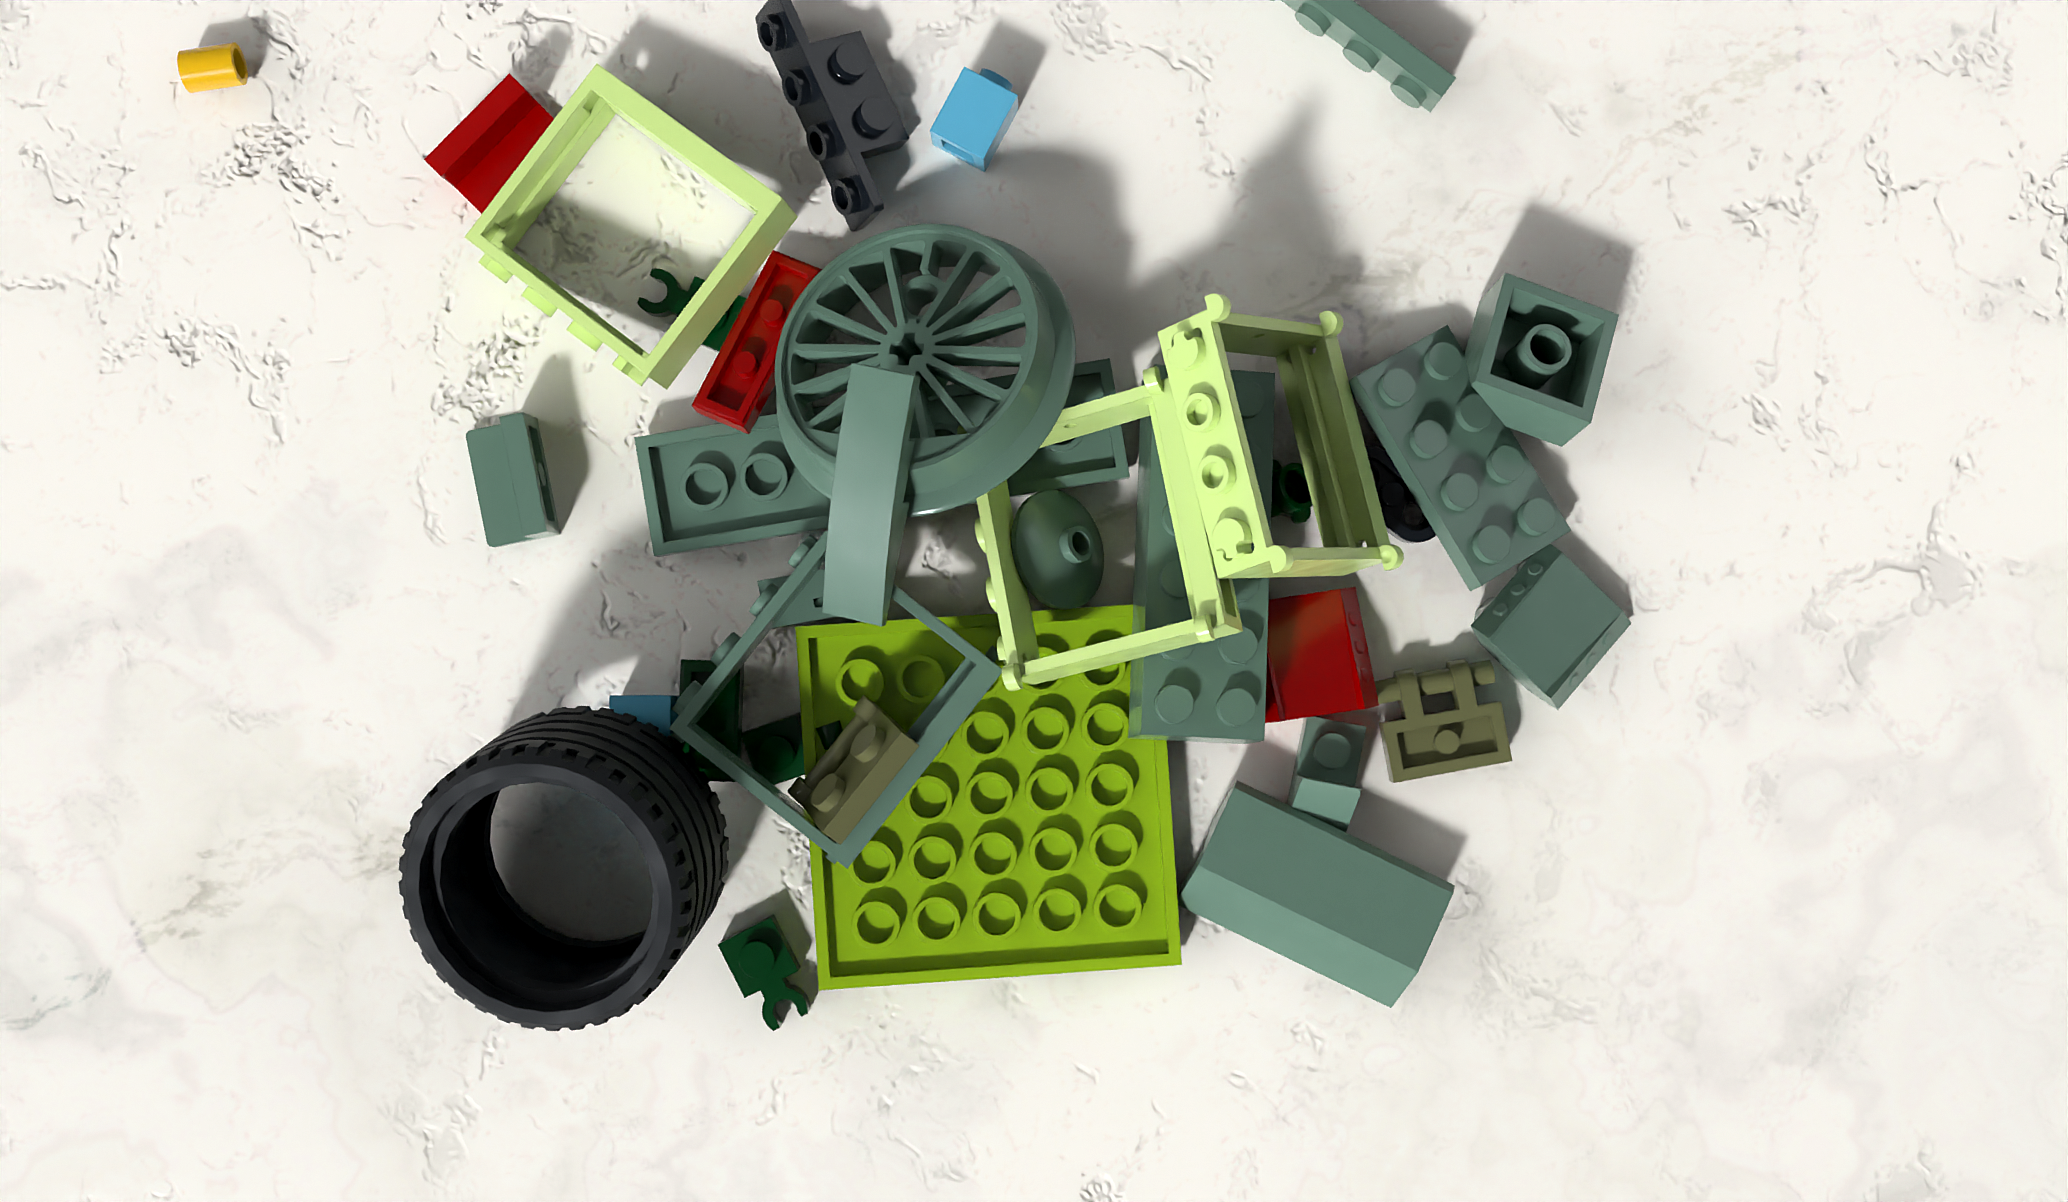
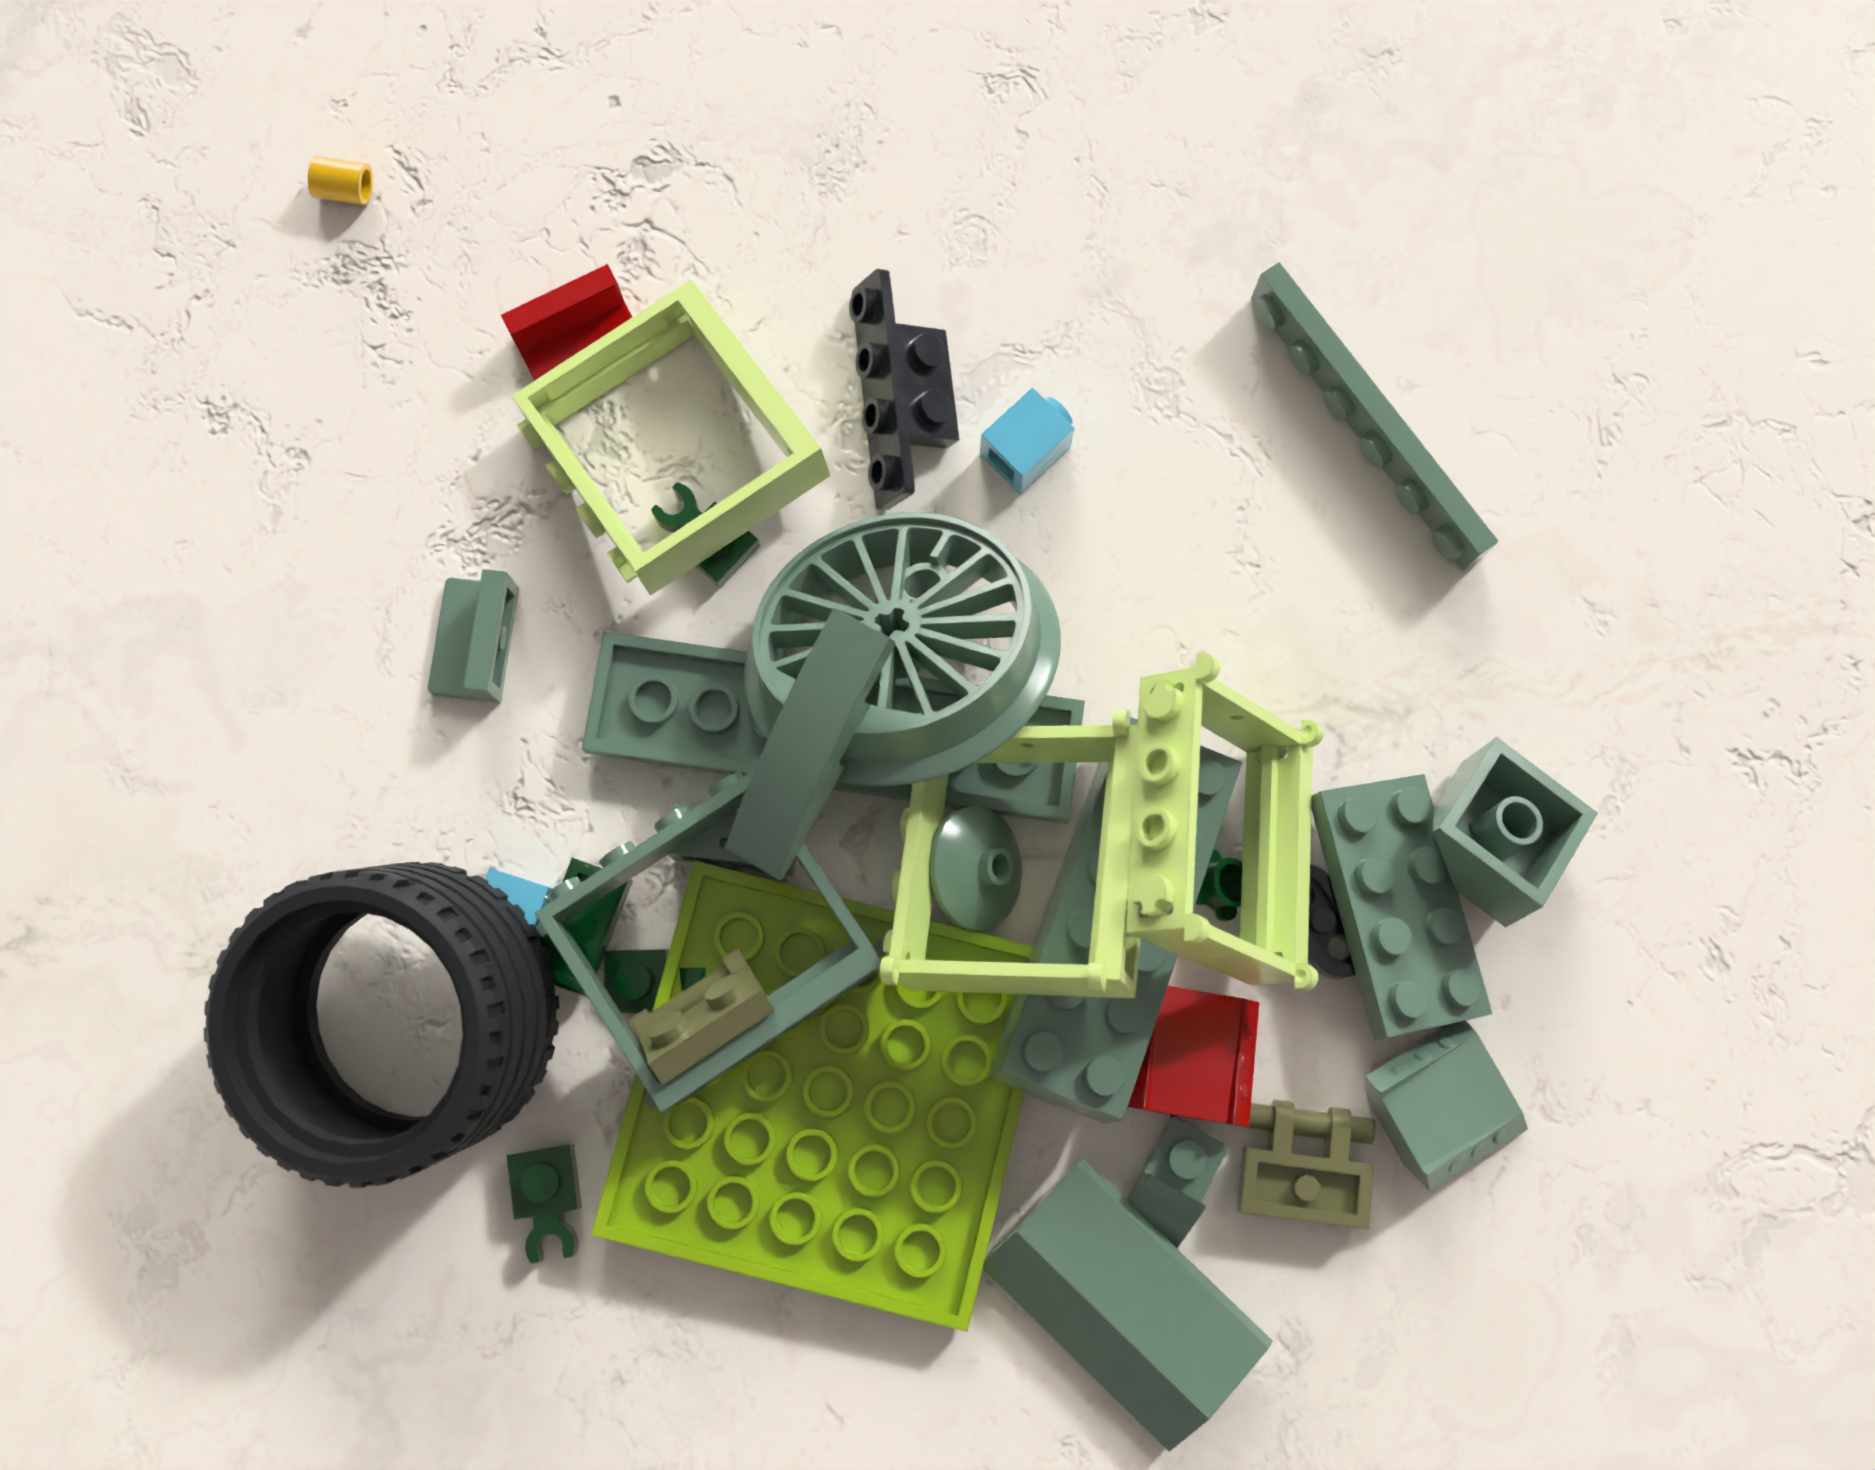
camera: 15 degrees right, 10 degrees down
(746, 362) = (730, 599): red tile -> none

